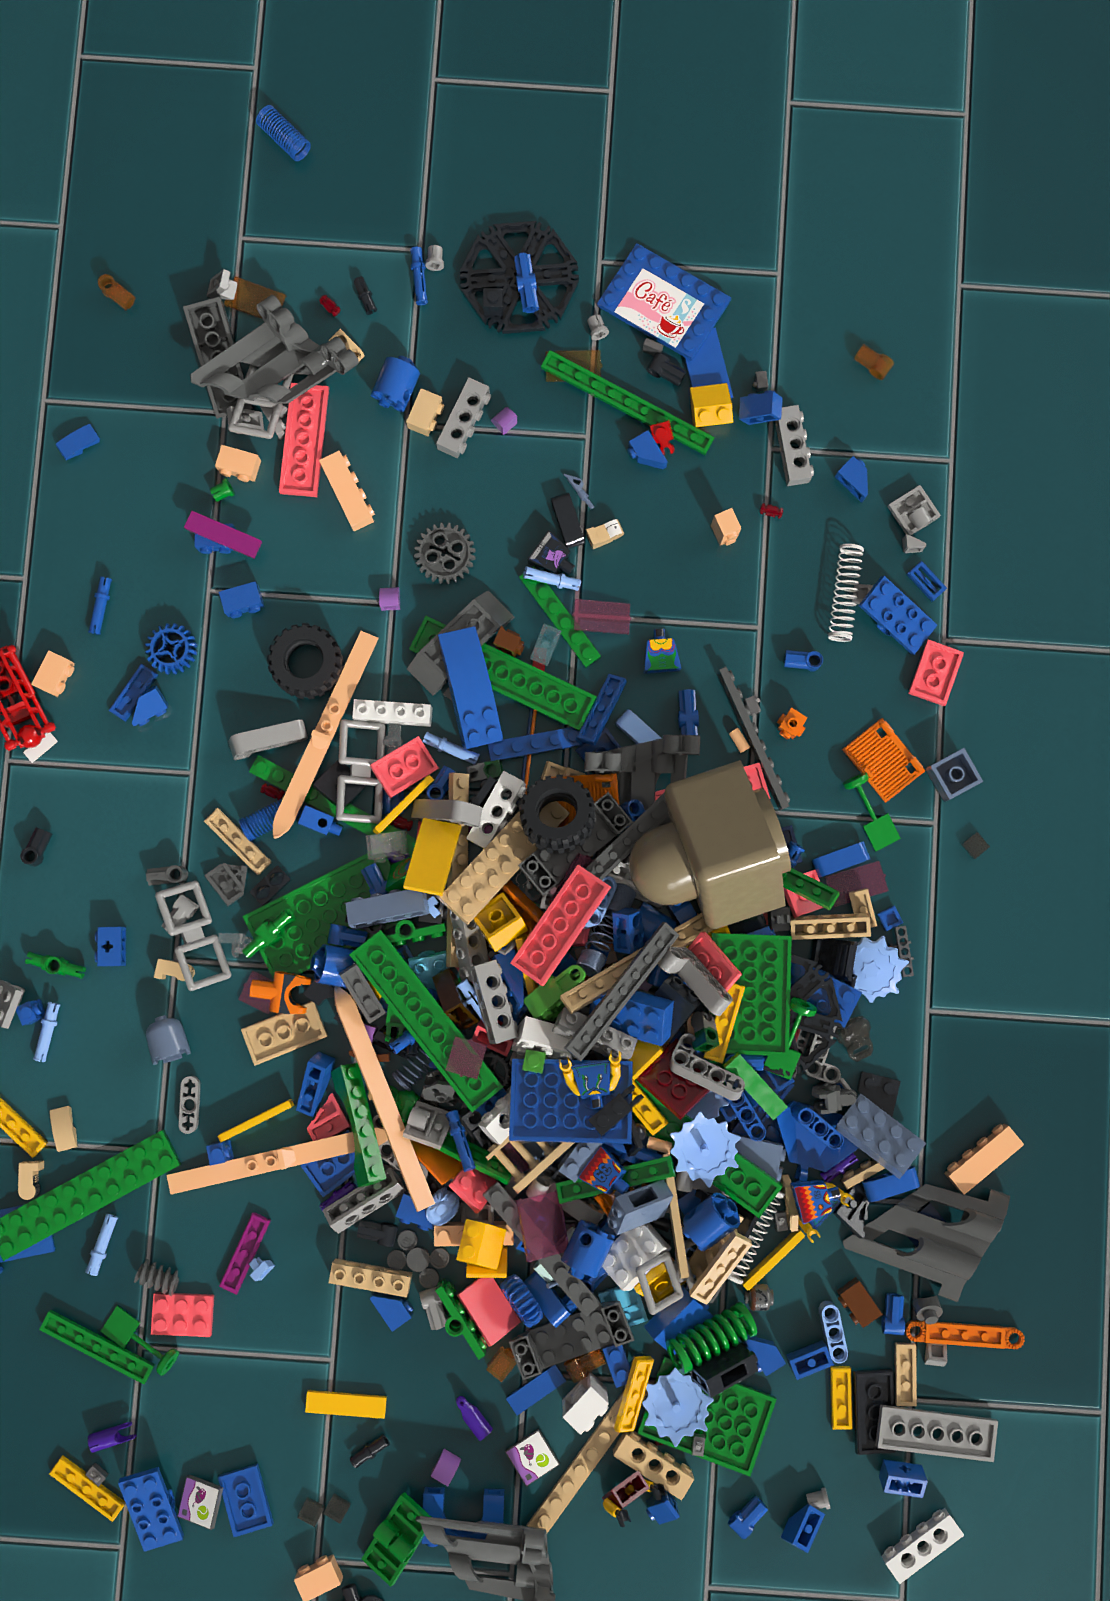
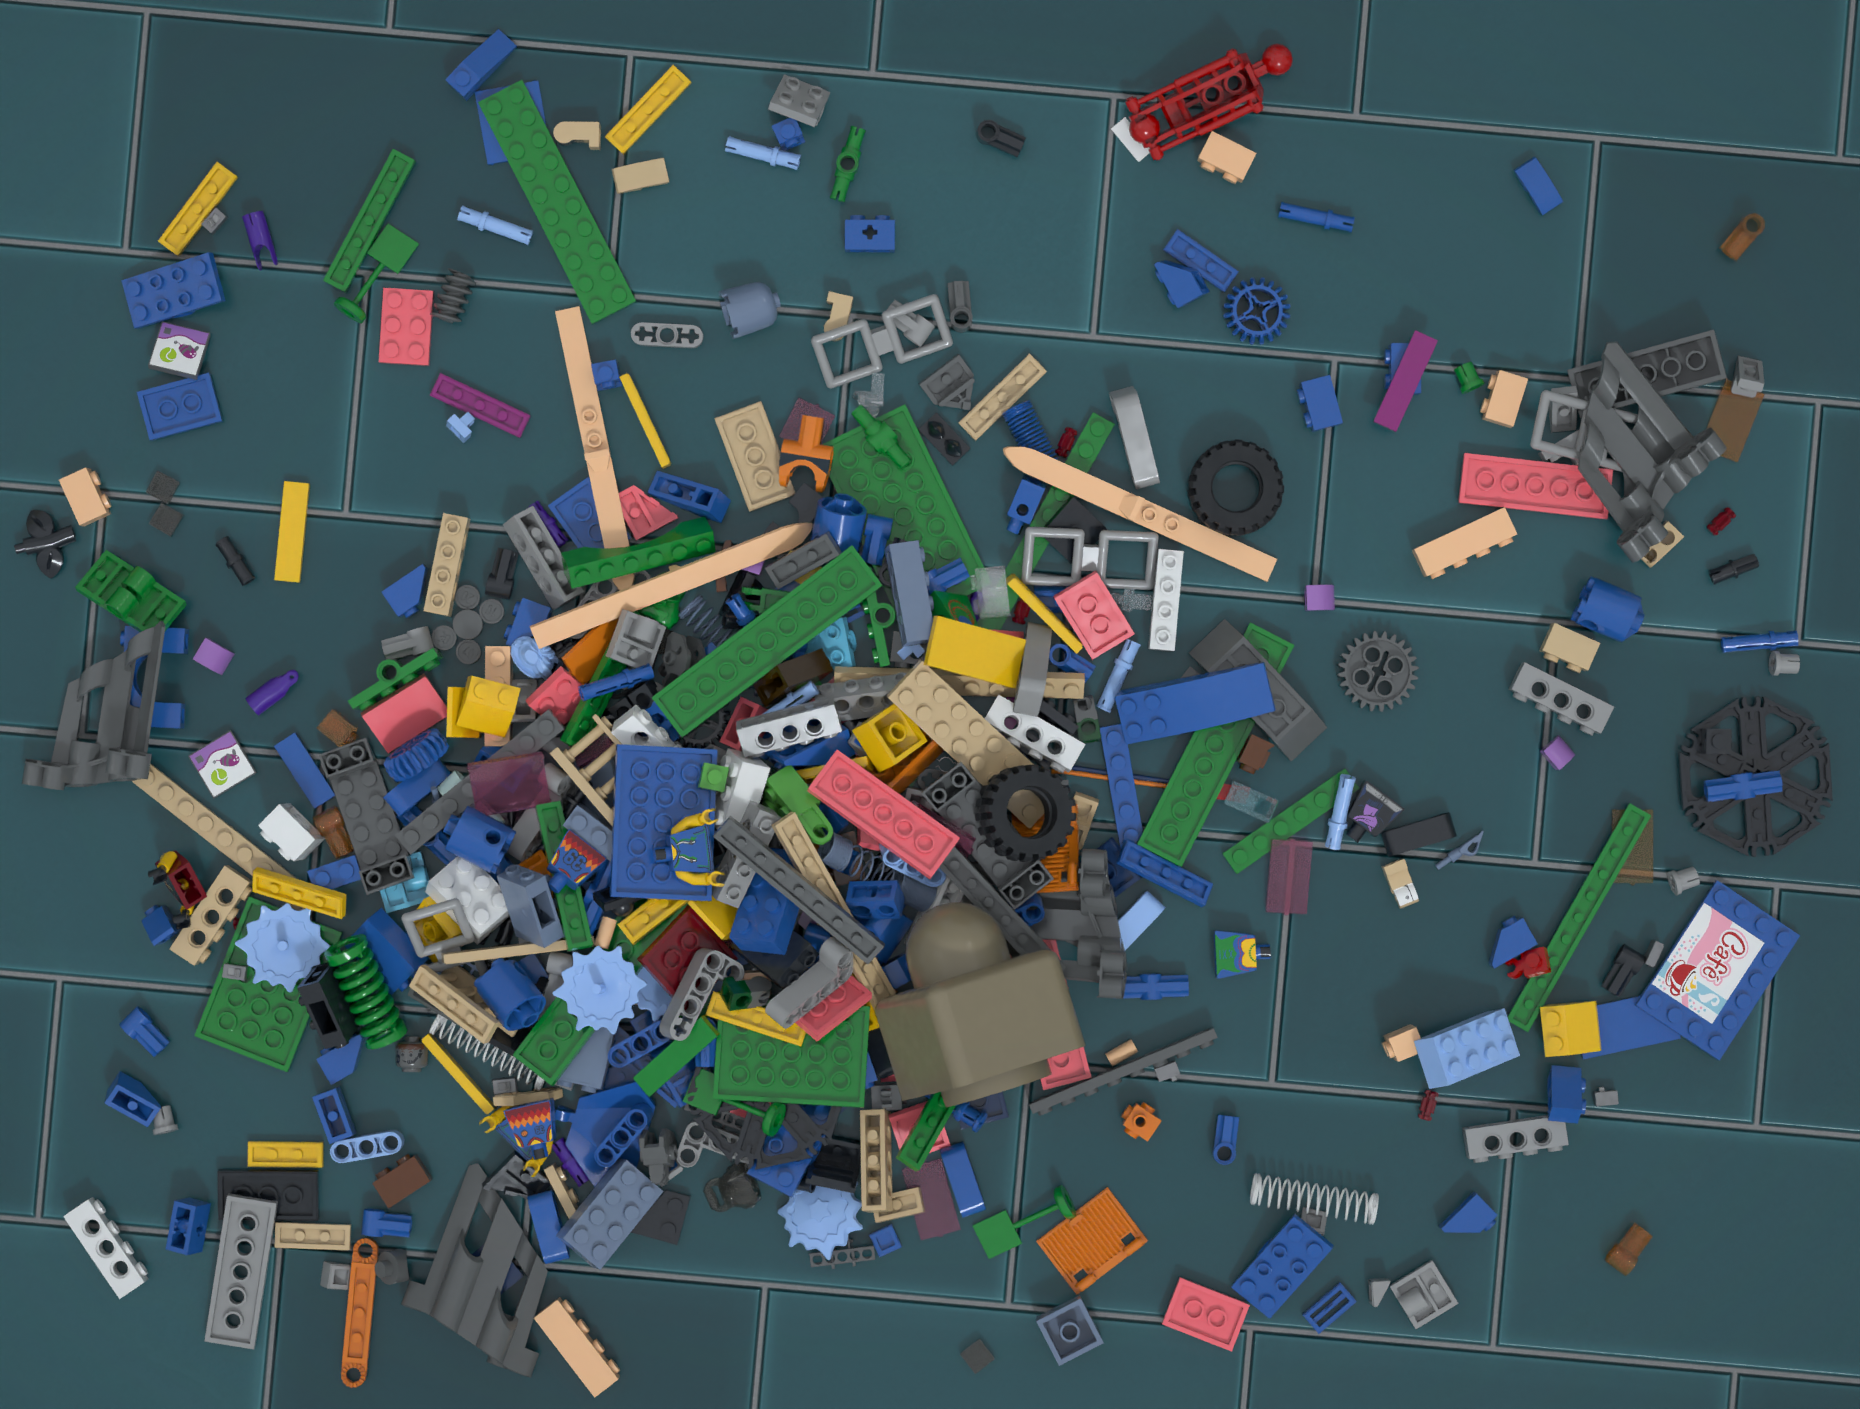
camera: 90 degrees right, 5 degrees up
(466, 1057) = (719, 691): clear pink piece -> none
(614, 1111) = (650, 877): black hinge -> none
(729, 478) = (1466, 1048): none -> light blue brick

